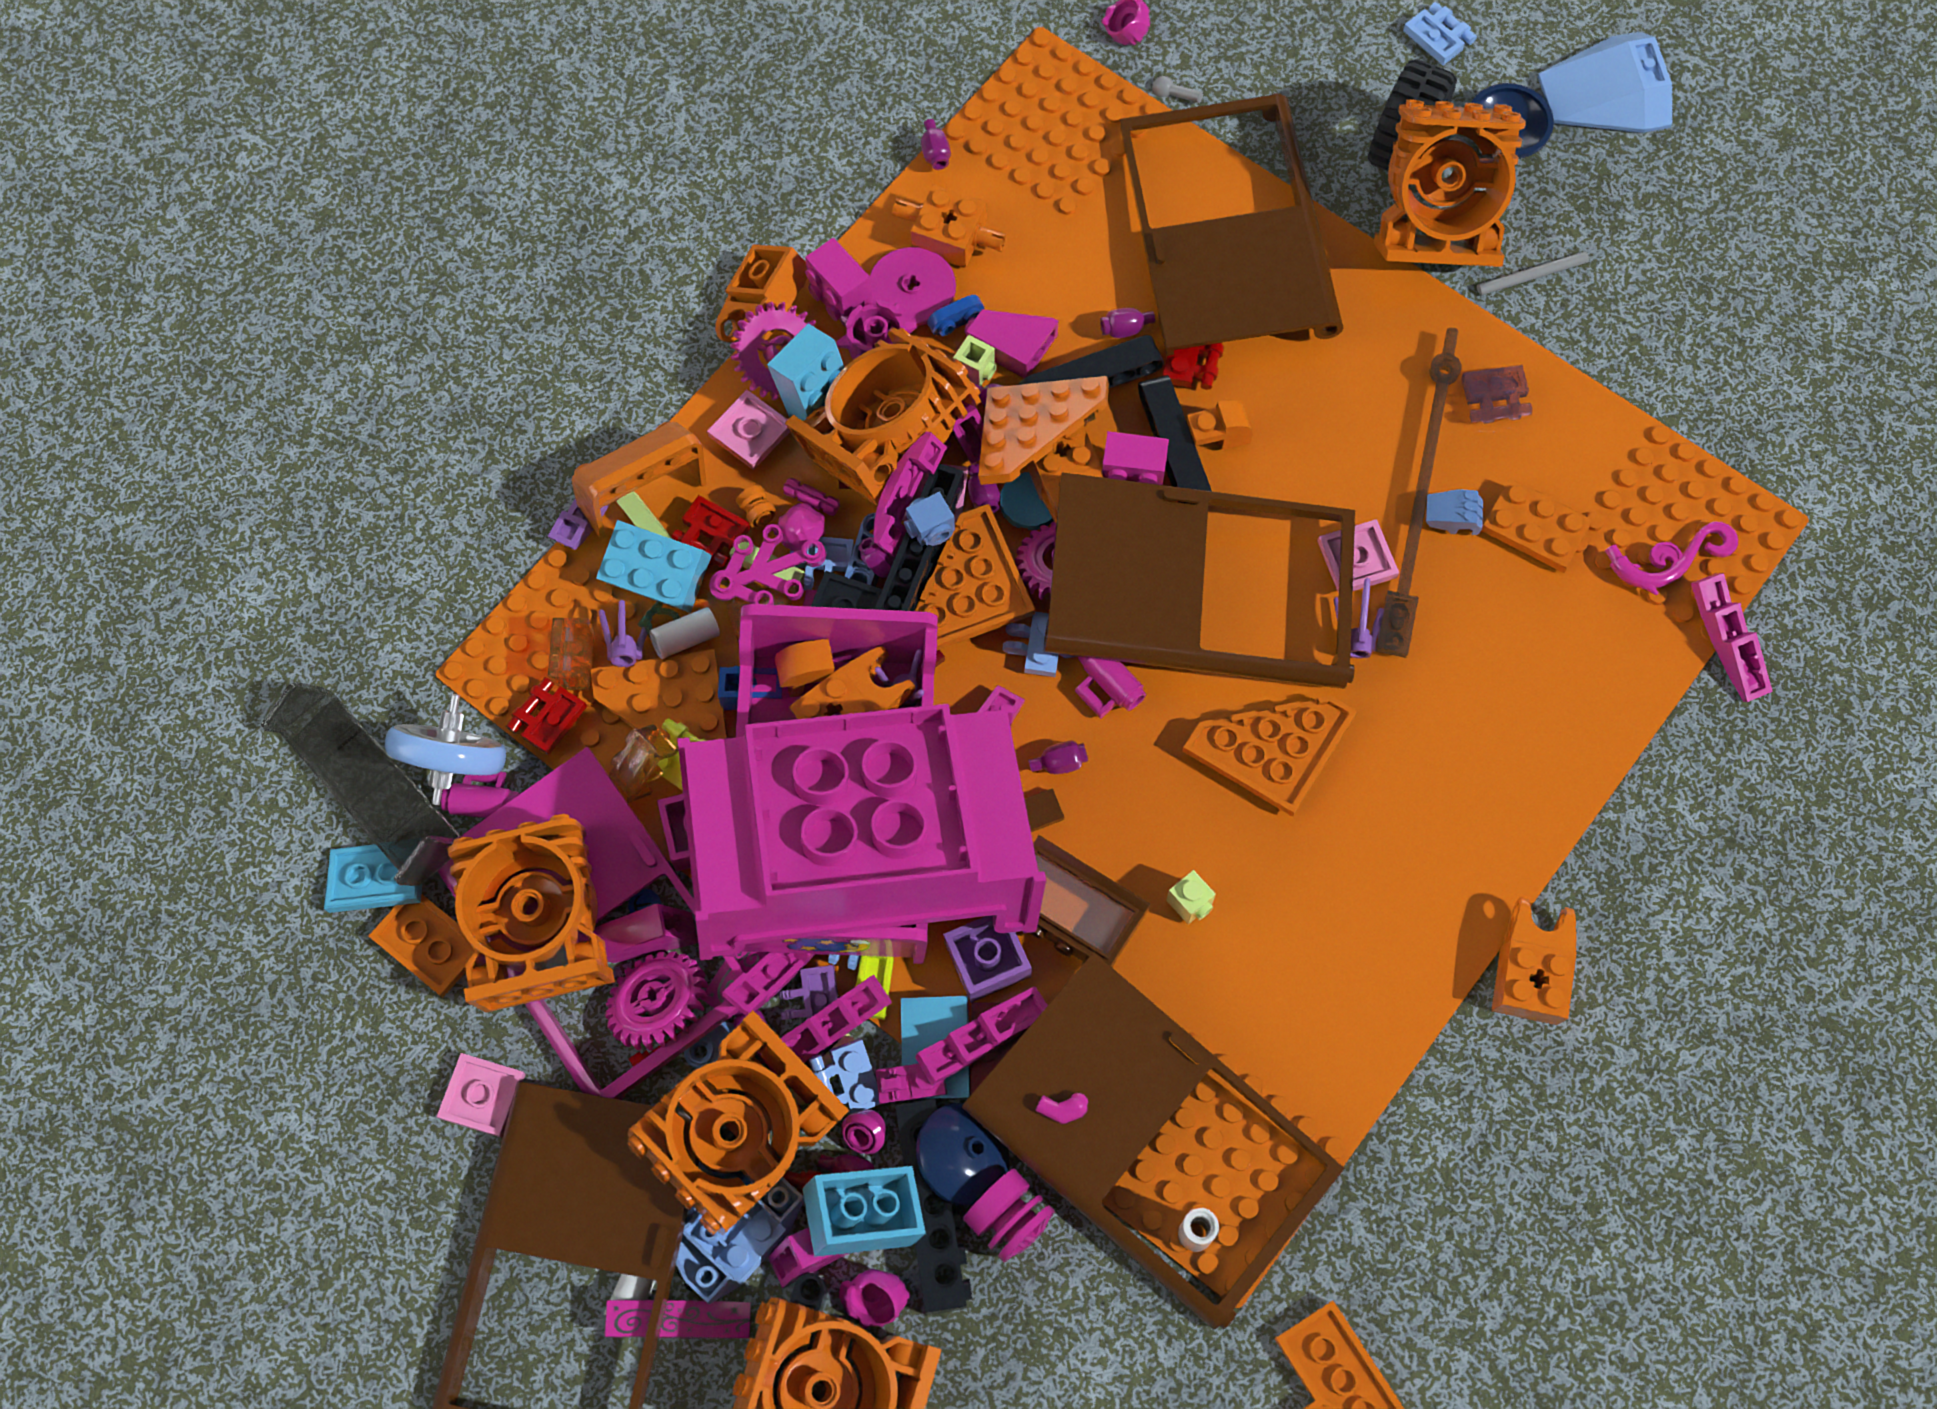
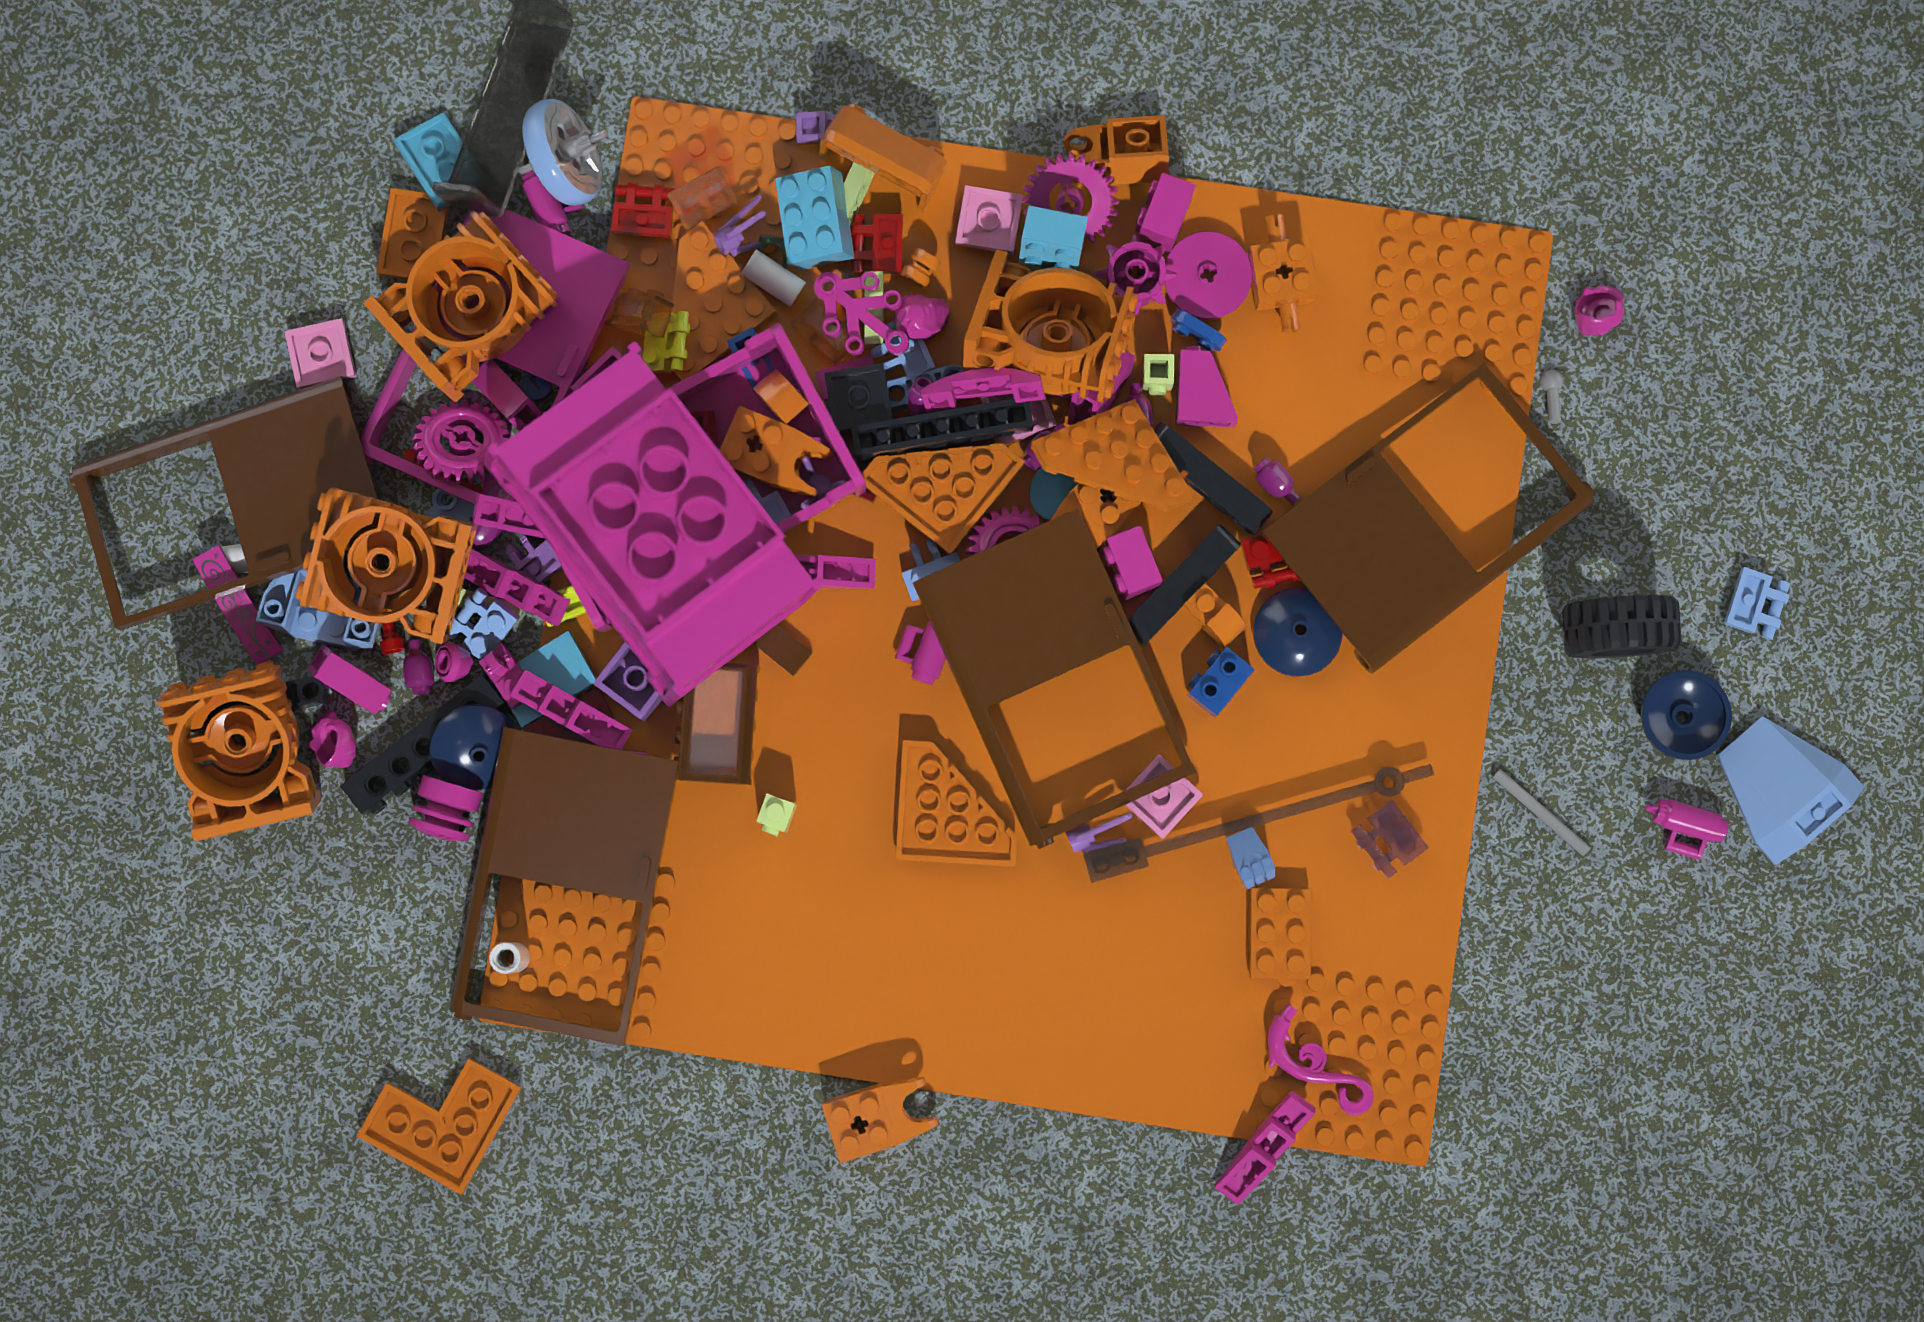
camera: 60 degrees right, 15 degrees up
(811, 496) = (958, 307): dark pink axle -> none
(863, 1211) = (382, 697): medium azure brick -> none
(930, 520) = (965, 424): medium blue brick -> none
(935, 146) = (1360, 214): magenta plant -> none
(1060, 758) = (840, 645): magenta plant -> none
(1064, 1111) = (539, 808): dark pink arm -> none
(1266, 389) = (1282, 646): none -> dark blue dish
(1280, 455) = (1220, 681): none -> blue brick
(1466, 231) = (1571, 705): orange brick -> none
(1601, 166) = (1688, 821): none -> dark pink piece

